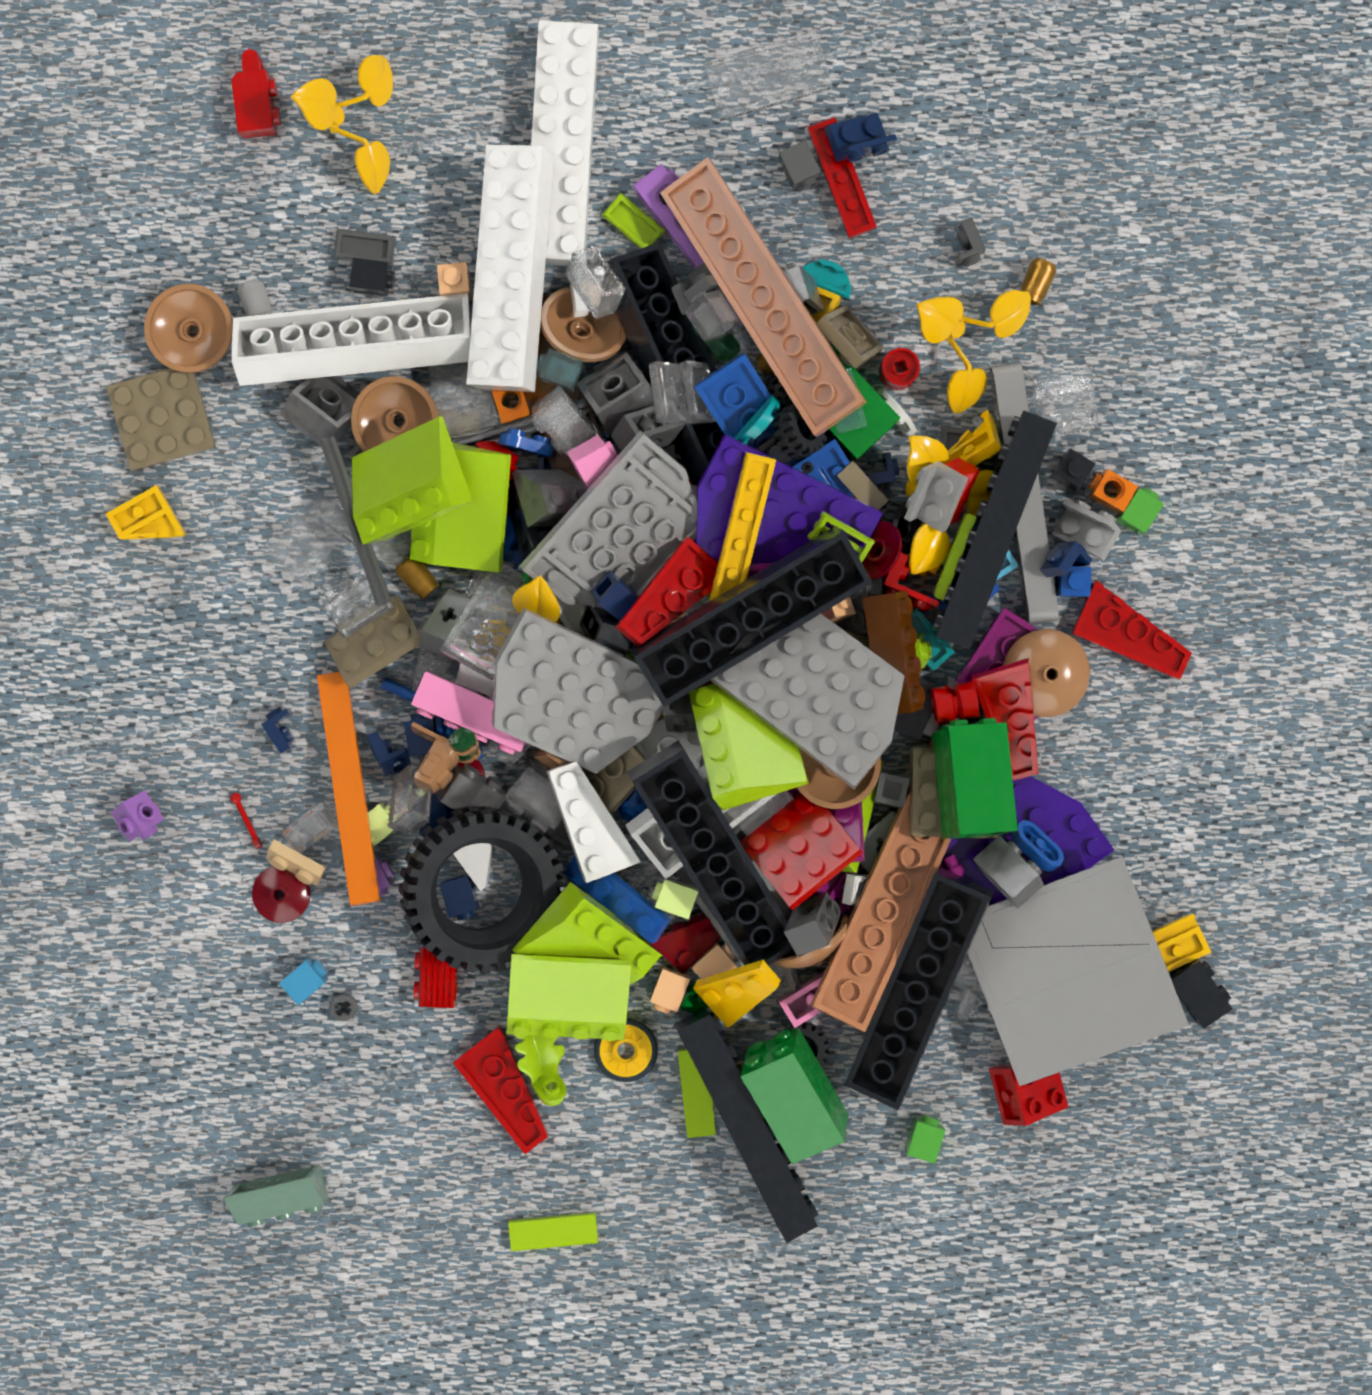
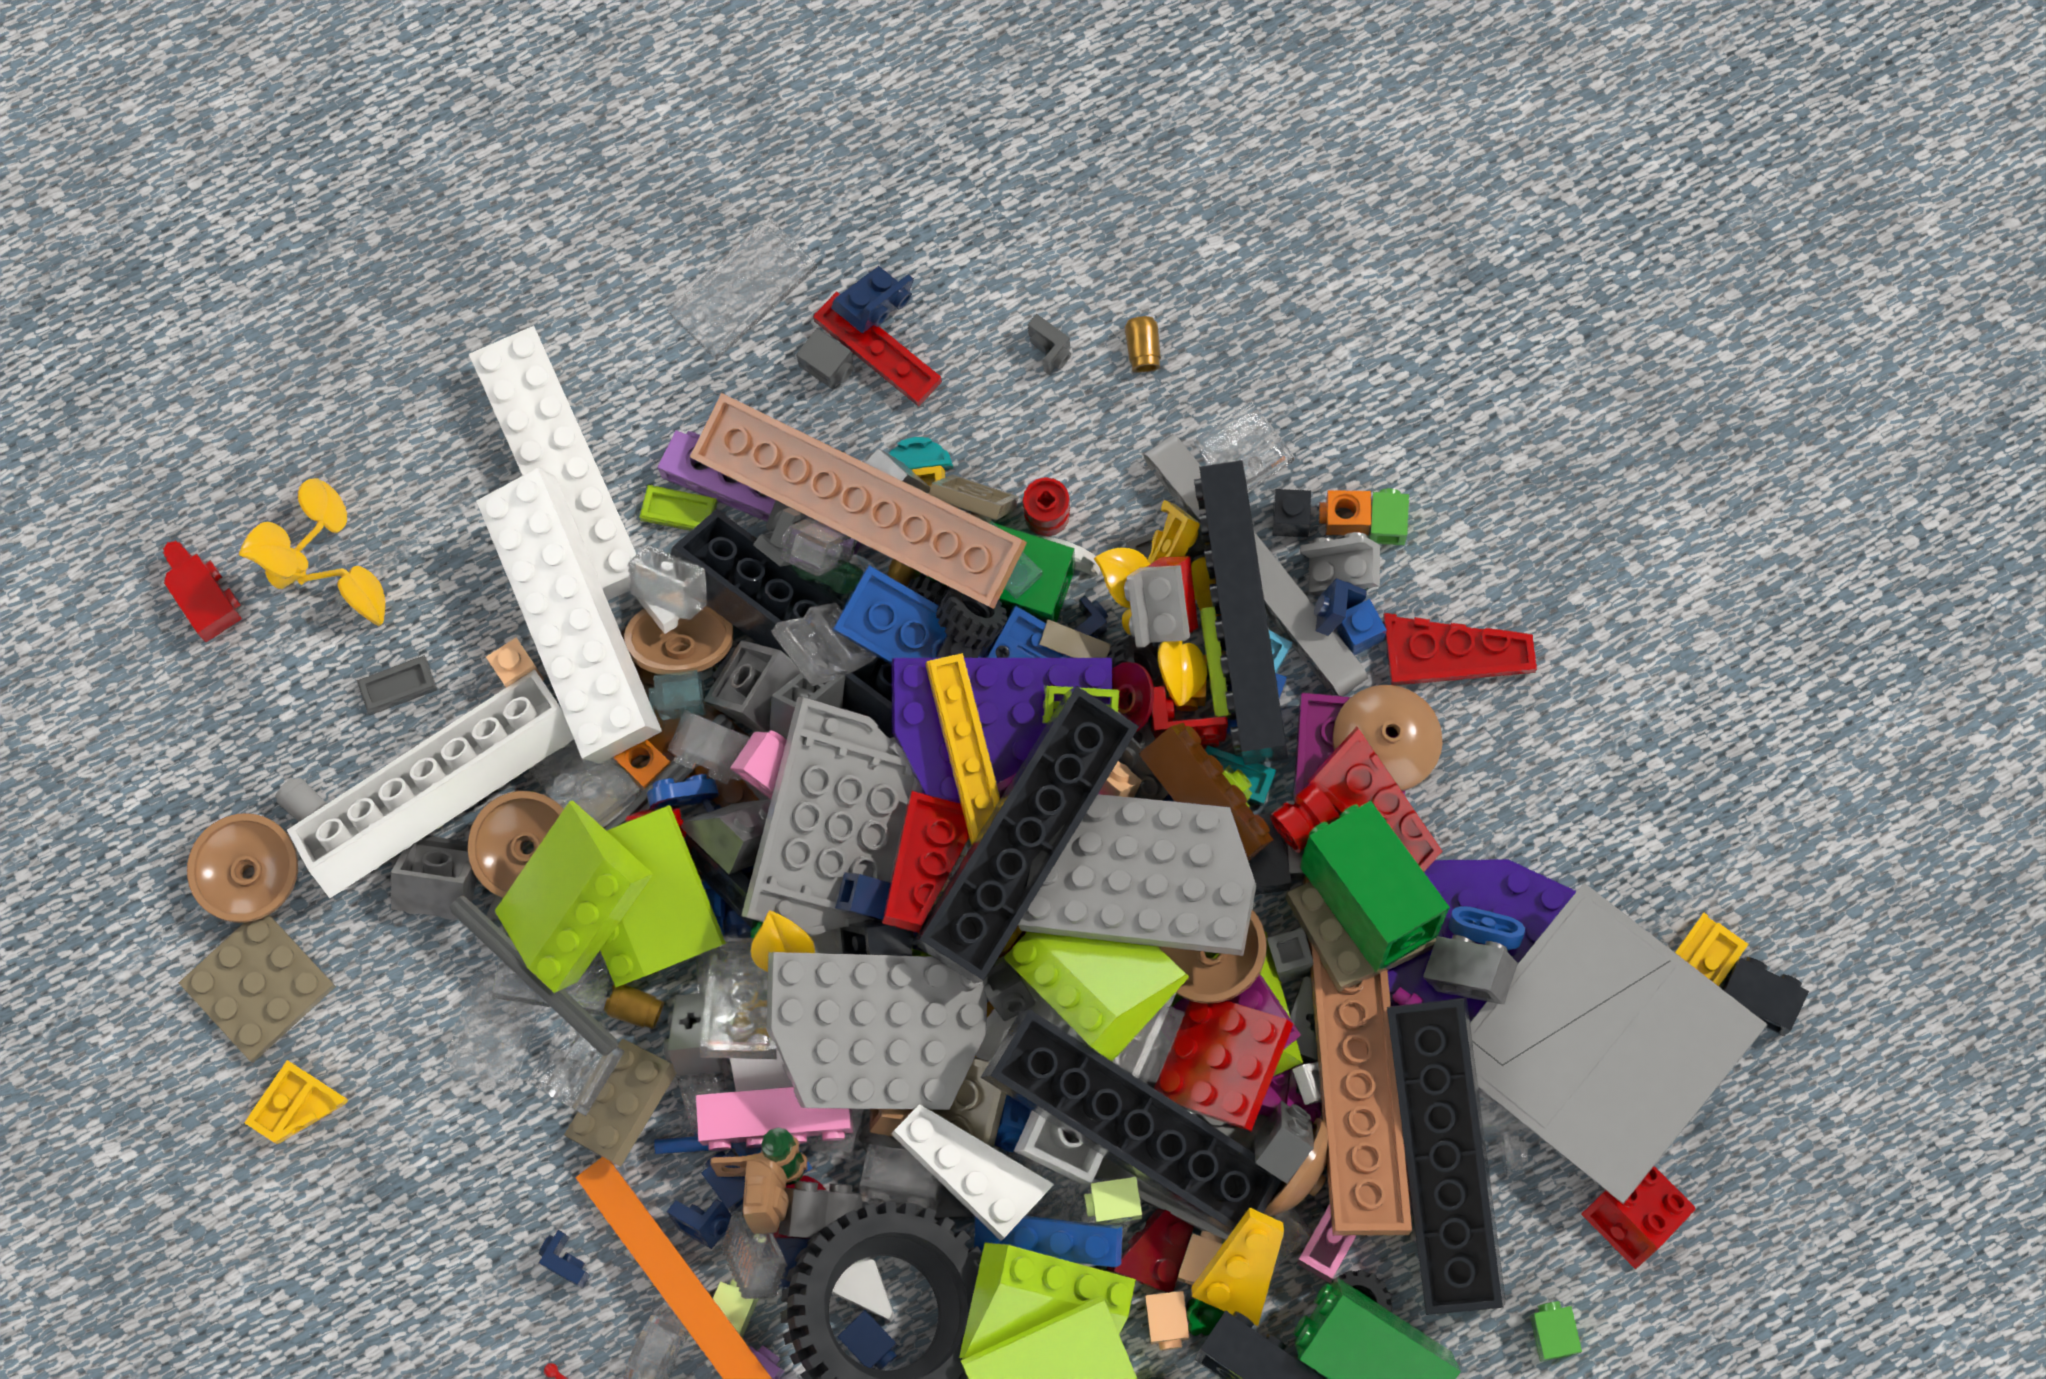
camera: 15 degrees left, 15 degrees down
(371, 277) = (420, 710): black brick -> none
(759, 421) = (923, 627): teal tile -> none
(944, 320) = (1062, 430): yellow plant -> none

